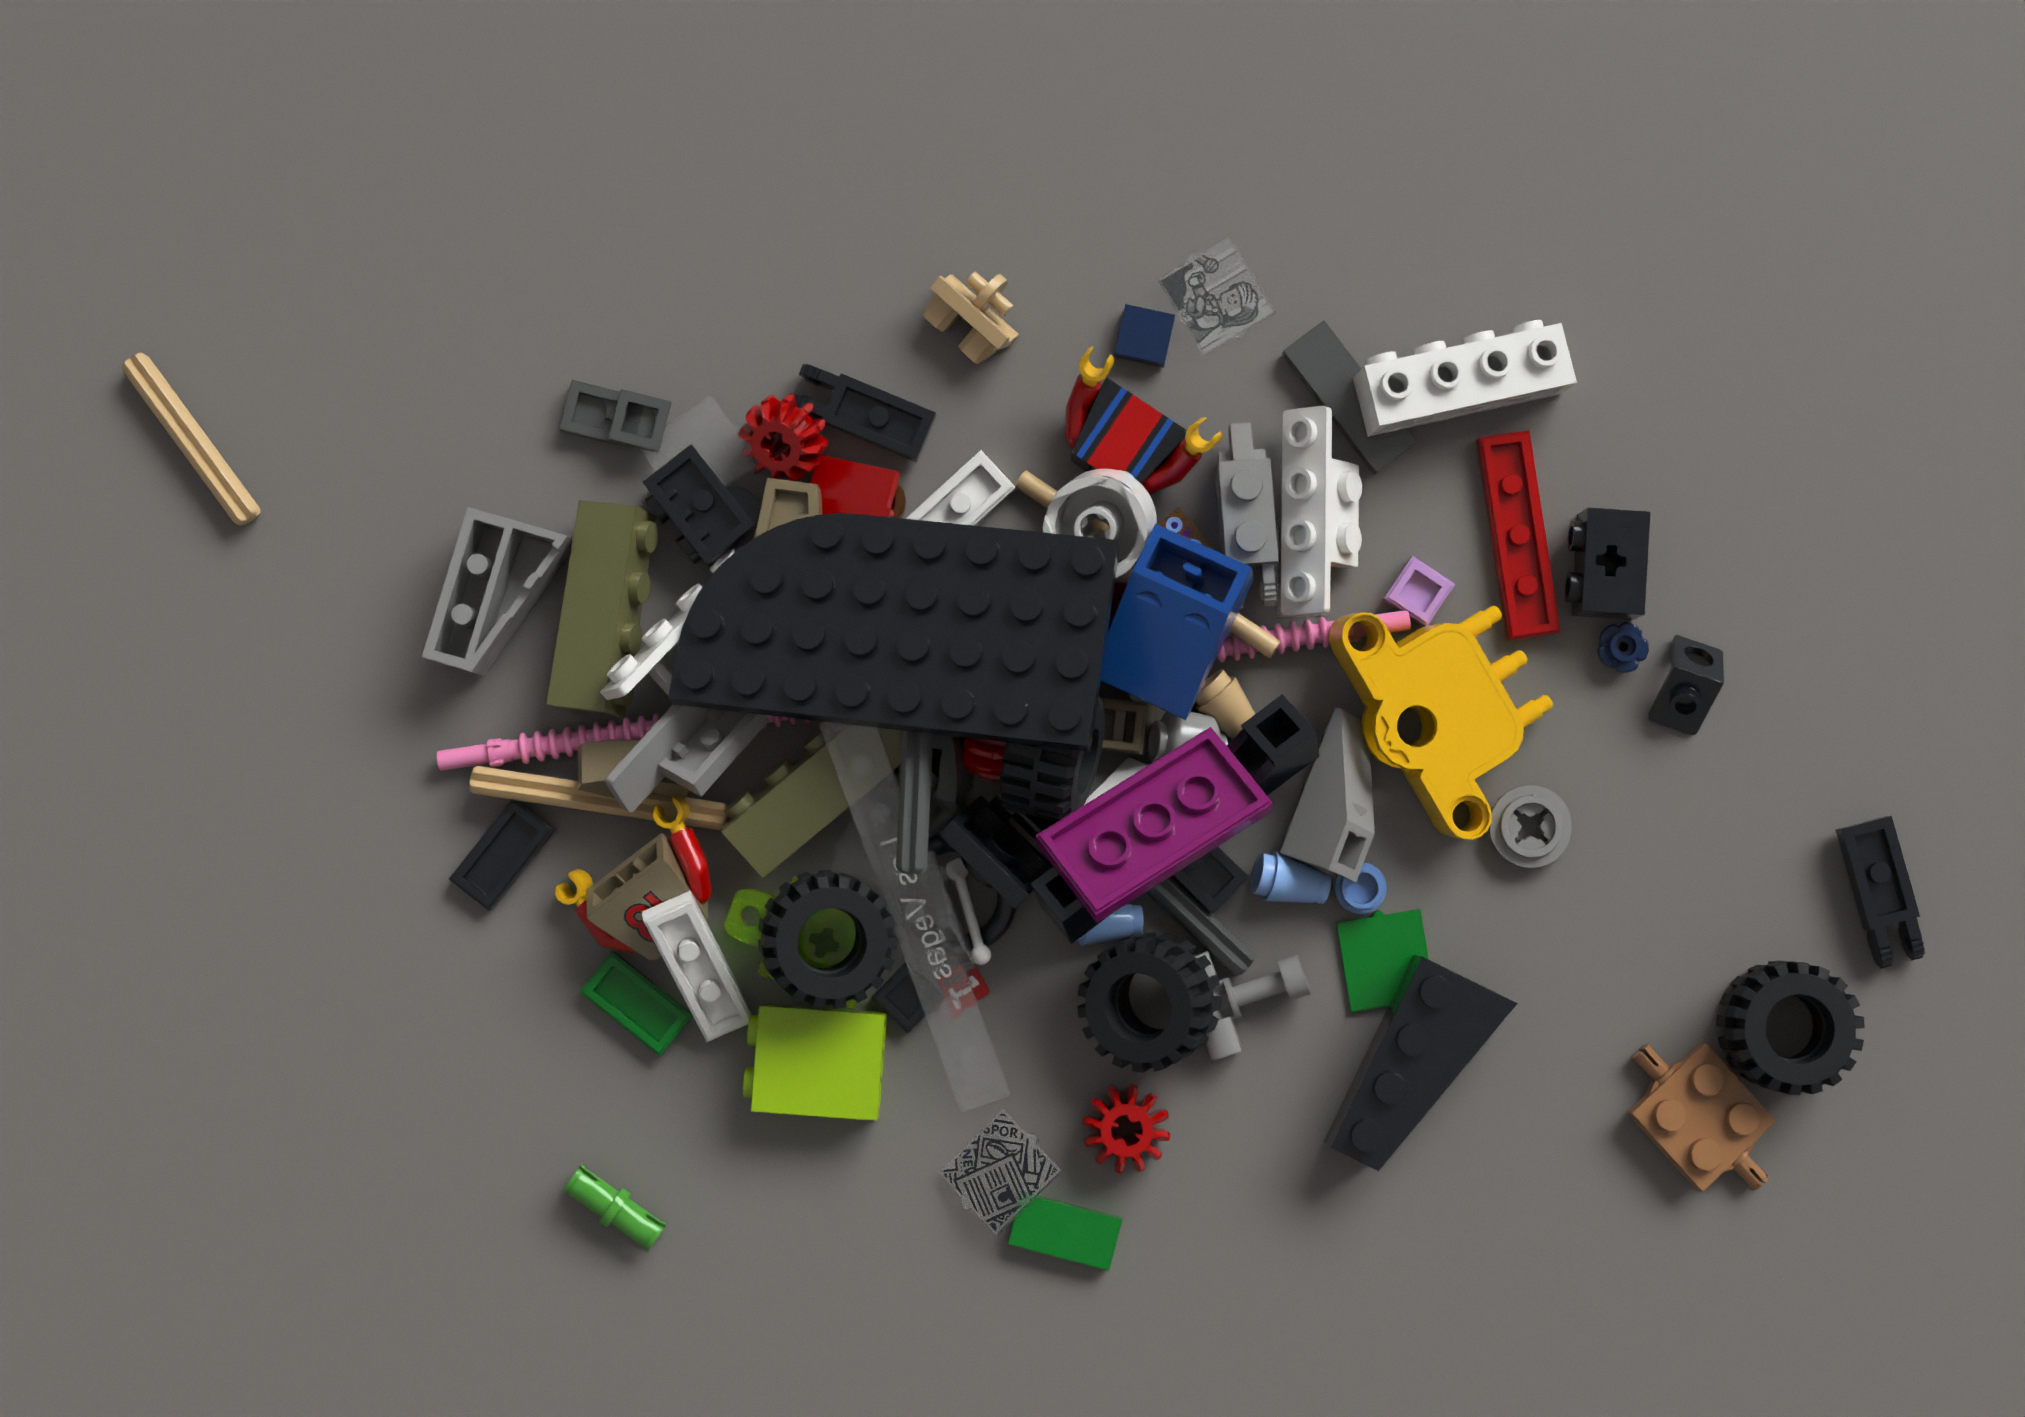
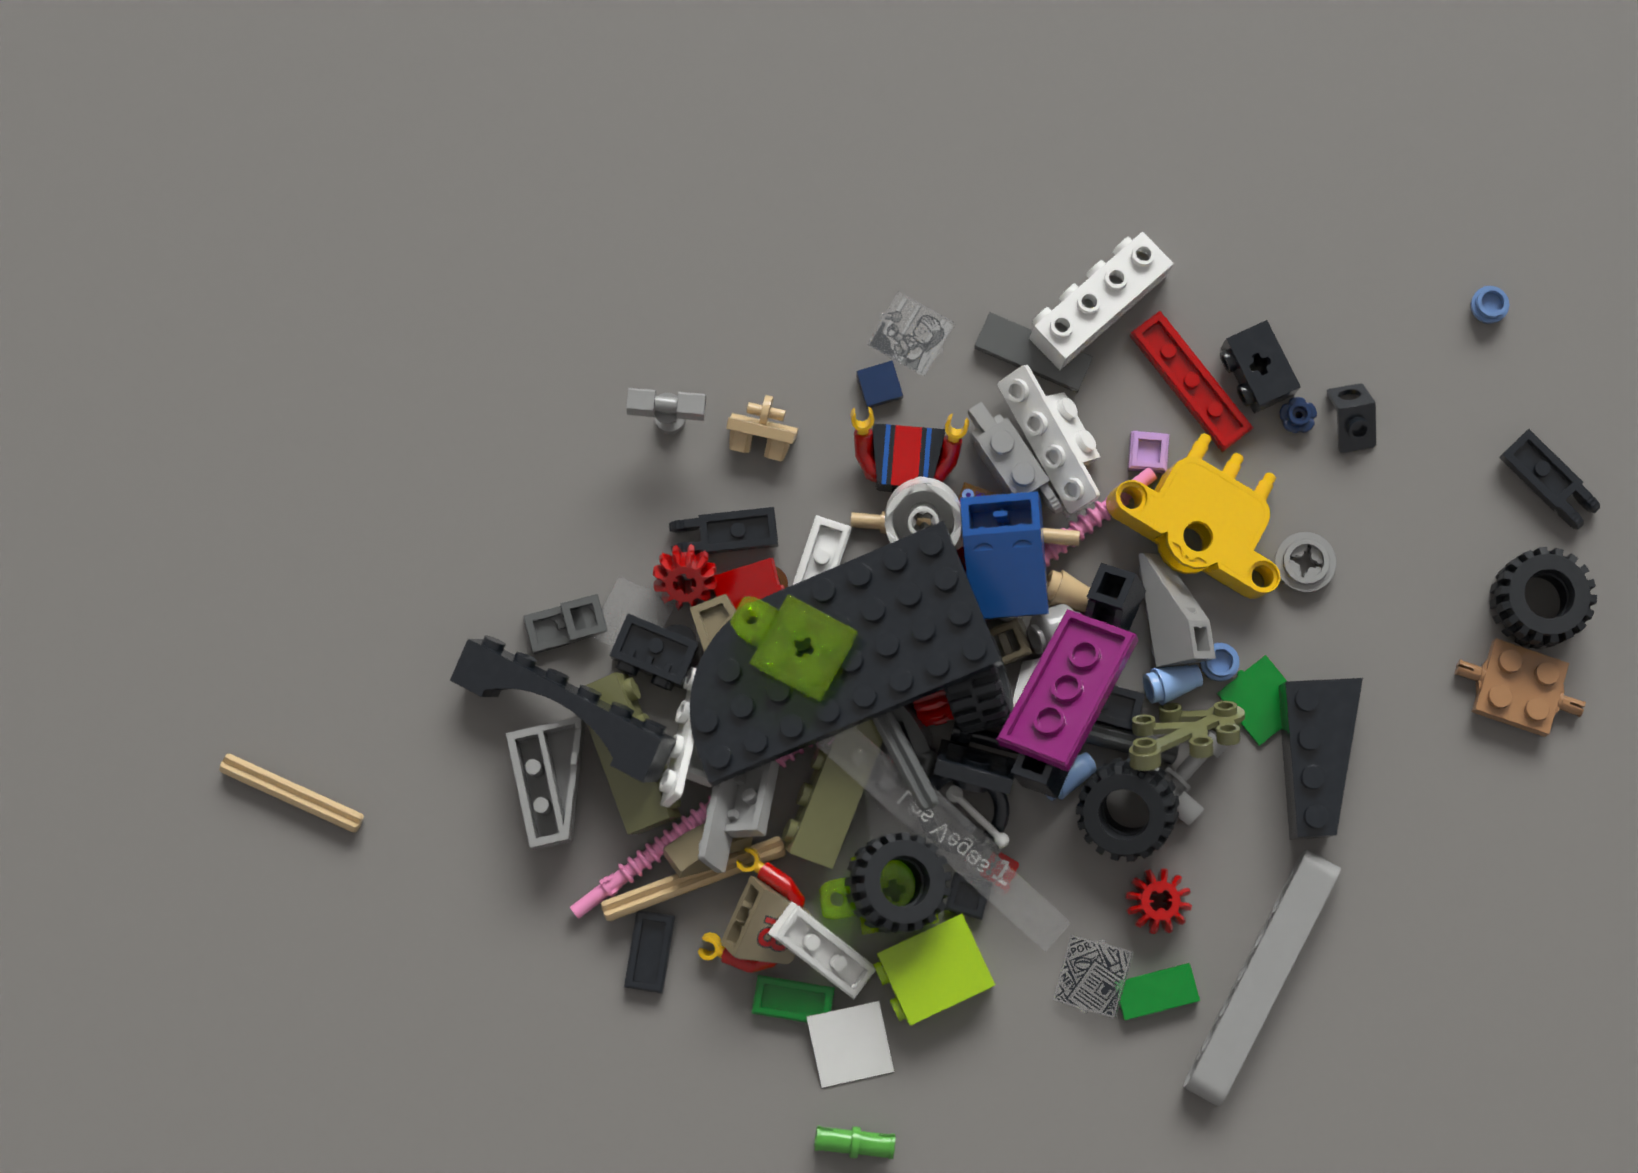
camera: 30 degrees left, 5 degrees down
(606, 605) = (635, 745): none -> black arch
(673, 1091) = (850, 1044): none -> white sticker
(845, 565) = (775, 639): none -> clear neon green plate
(874, 229) = (667, 408): none -> light grey bar
(1197, 1284) = (1261, 978): none -> light grey beam
(1325, 956) = (1181, 726): none -> olive plant
(1931, 641) = (1489, 304): none -> medium blue plate

